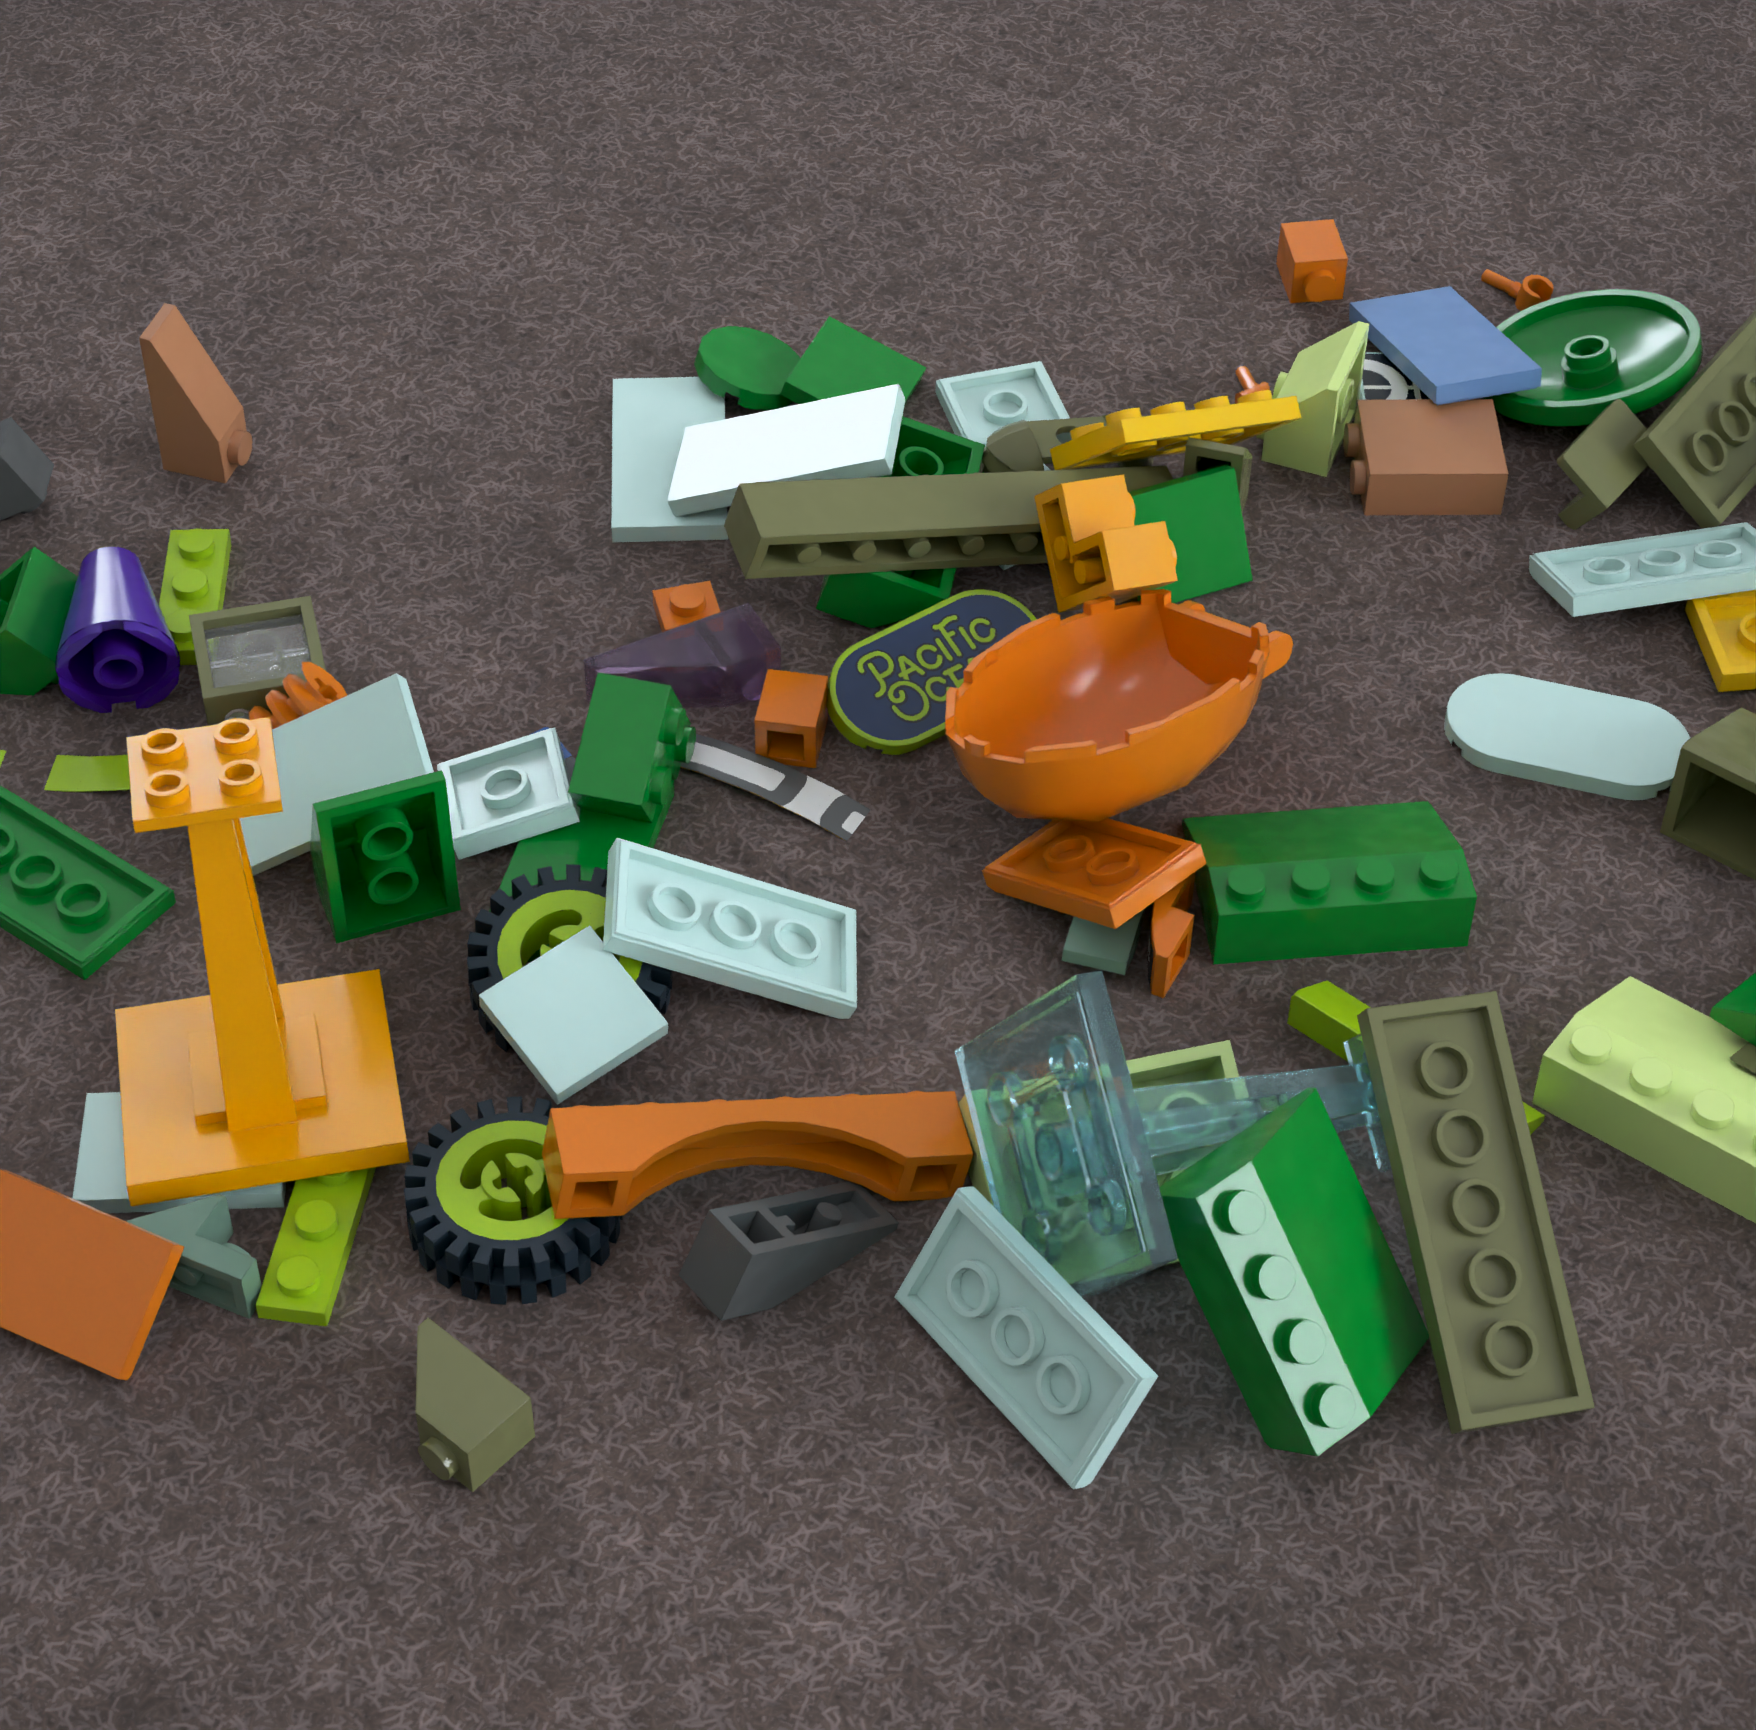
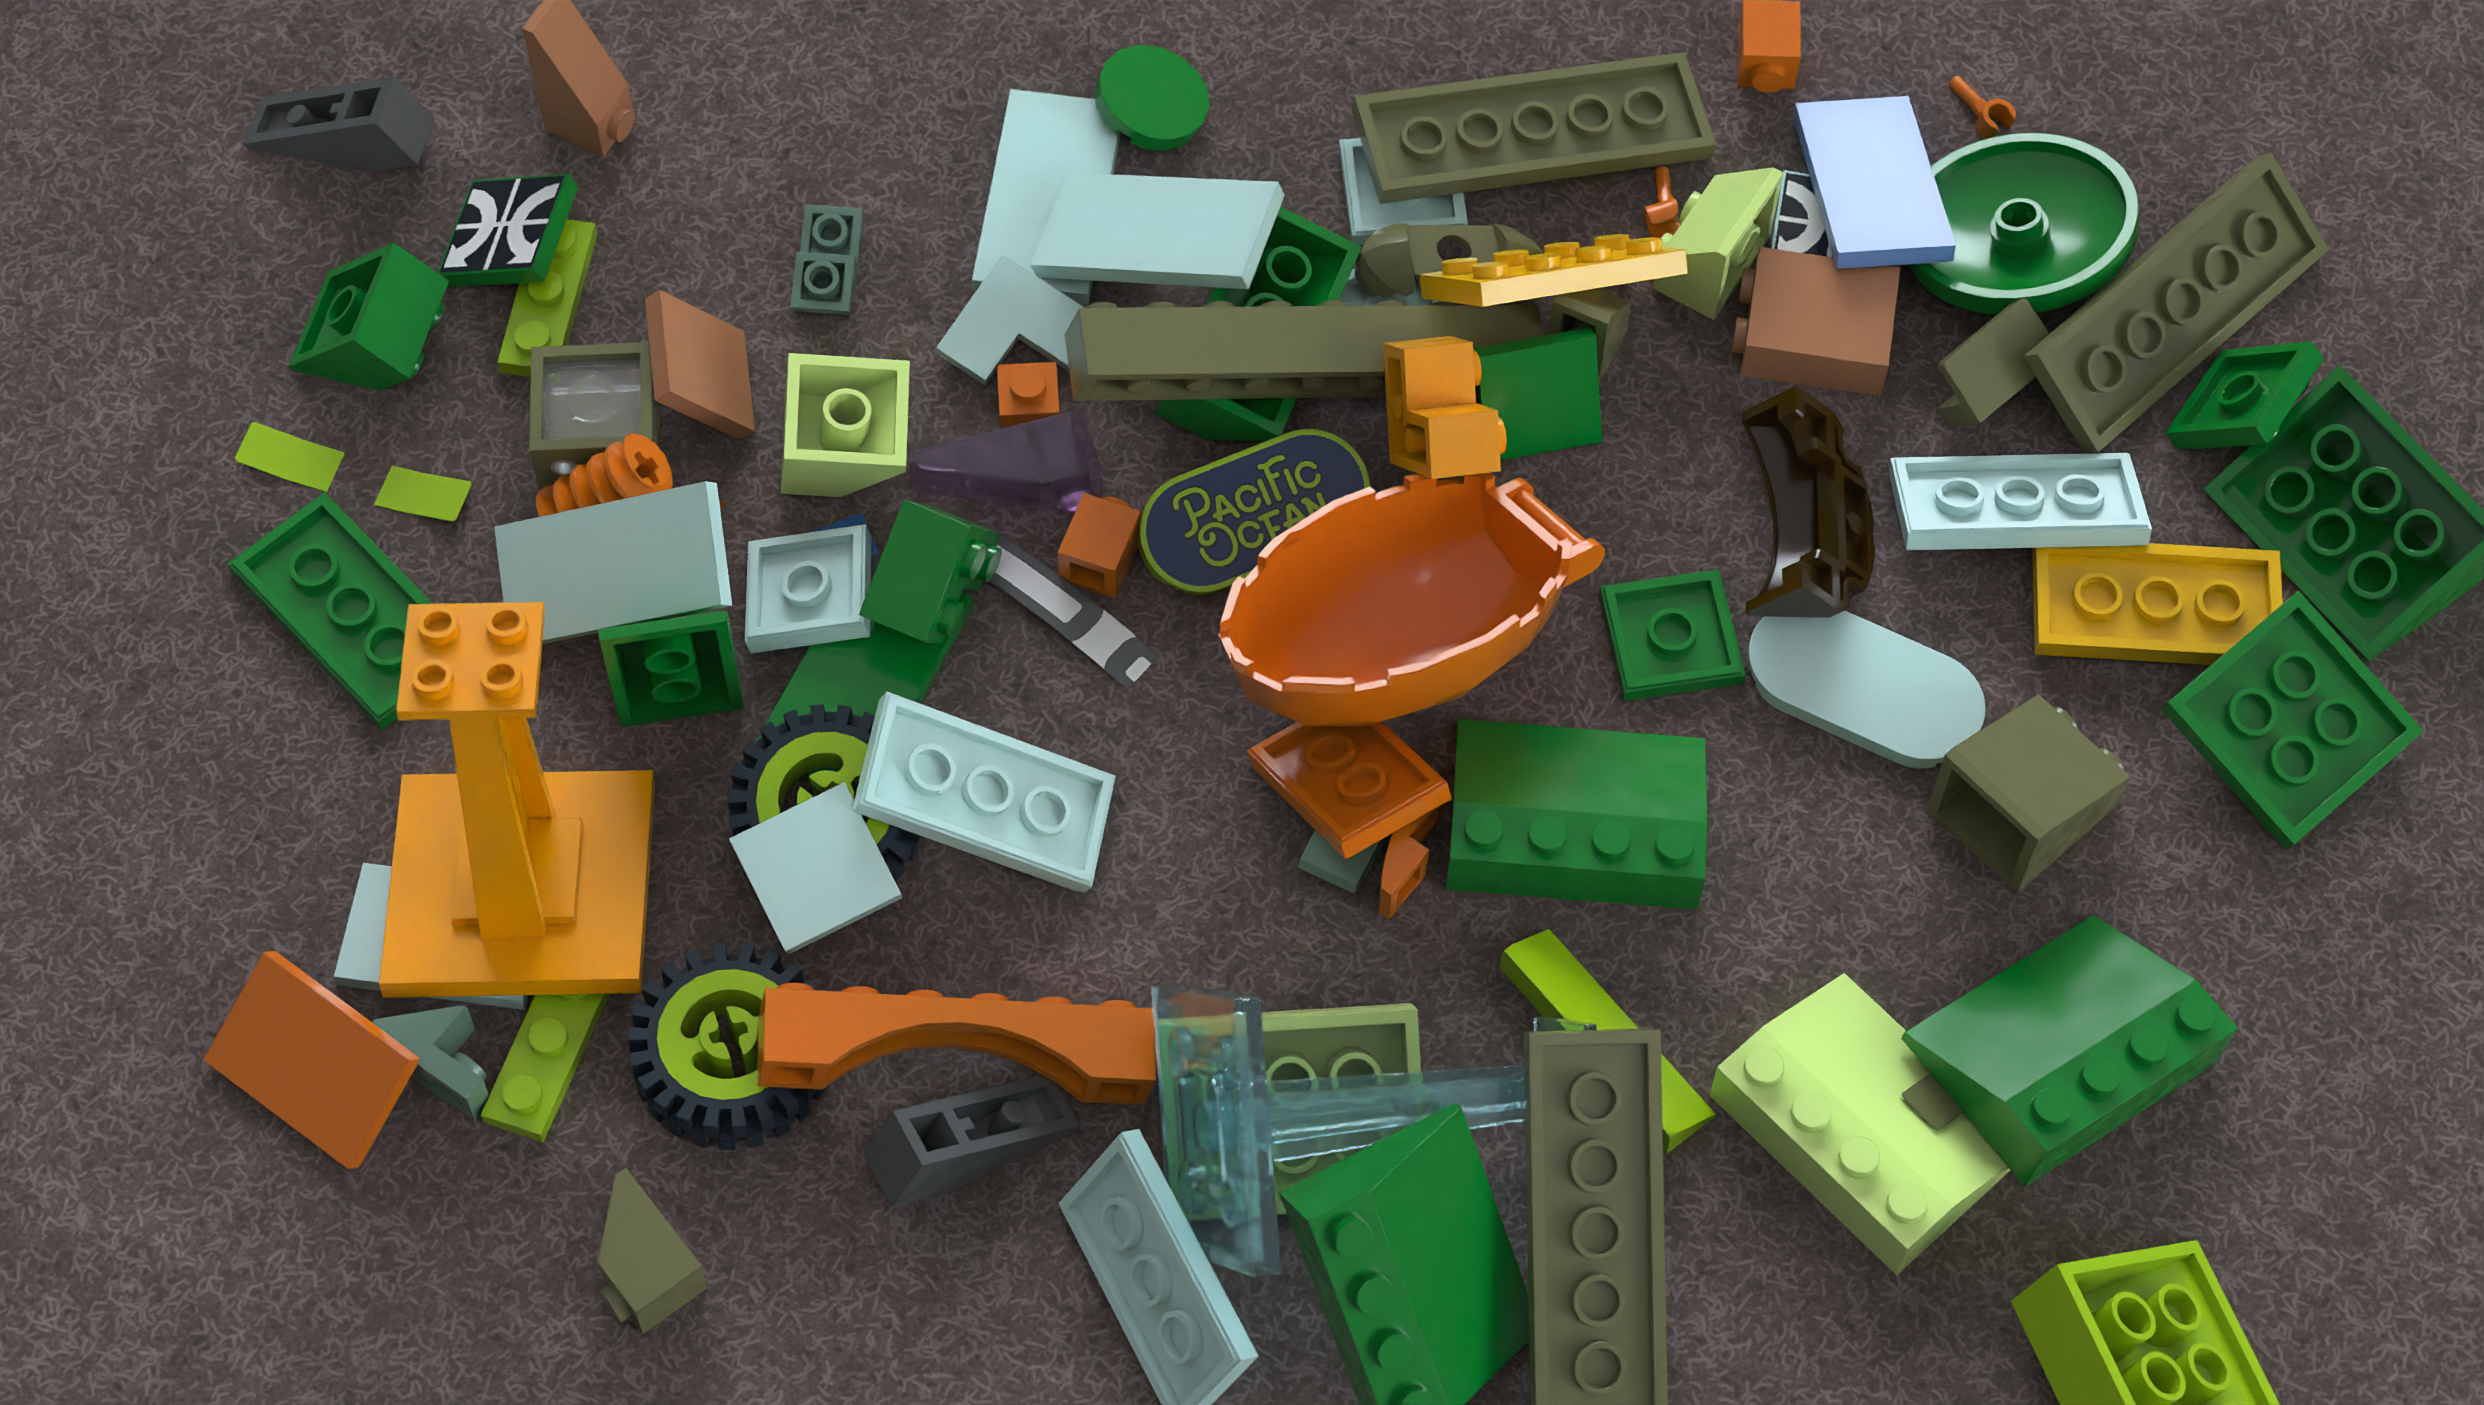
camera: 10 degrees right, 15 degrees up
(115, 636) = (461, 346): dark purple cone -> none
(156, 529) = (508, 230): none -> tile
(358, 617) = (699, 365): none -> nougat tile
(465, 530) = (827, 259): none -> sand green slope
(512, 648) = (843, 423): none -> yellowish green slope
(658, 541) = (1002, 310): none -> light aqua tile
(846, 363) = (1253, 127): green tile -> none
(1114, 344) = (1532, 127): none -> olive plate
(1368, 722) = (1671, 635): none -> green tile
(1468, 594) = (1817, 509): none -> dark brown windscreen

